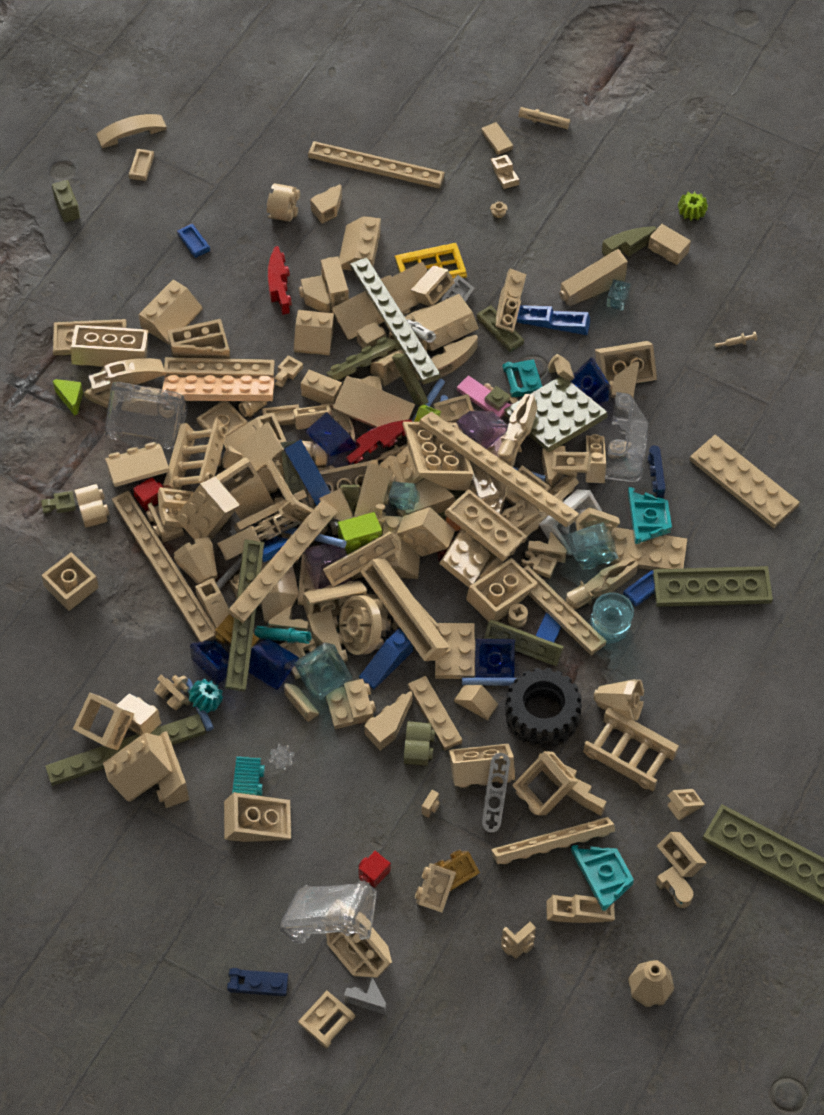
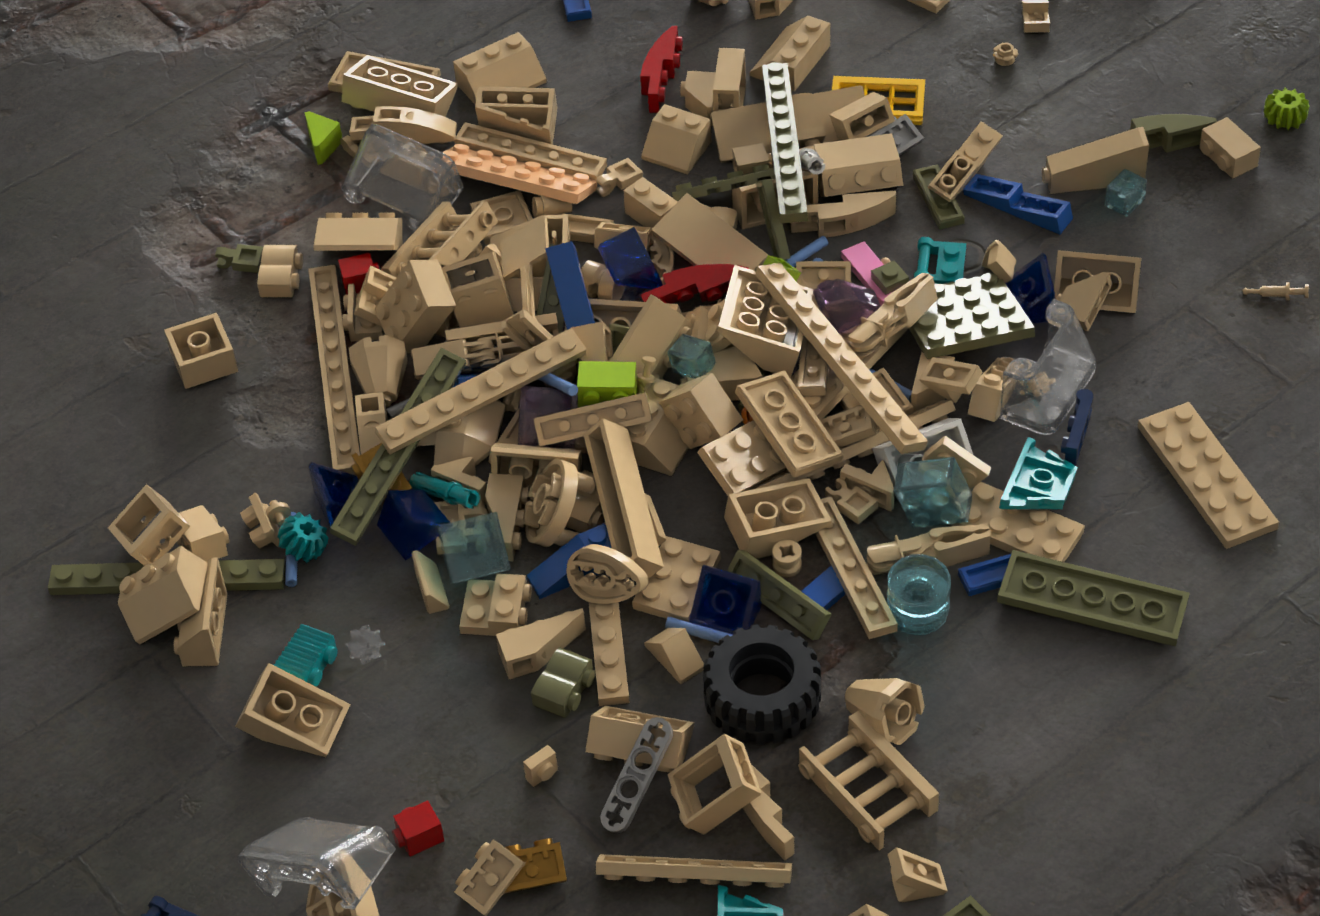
camera: 25 degrees right, 10 degrees down
(416, 674) = (617, 567): none -> tan piece

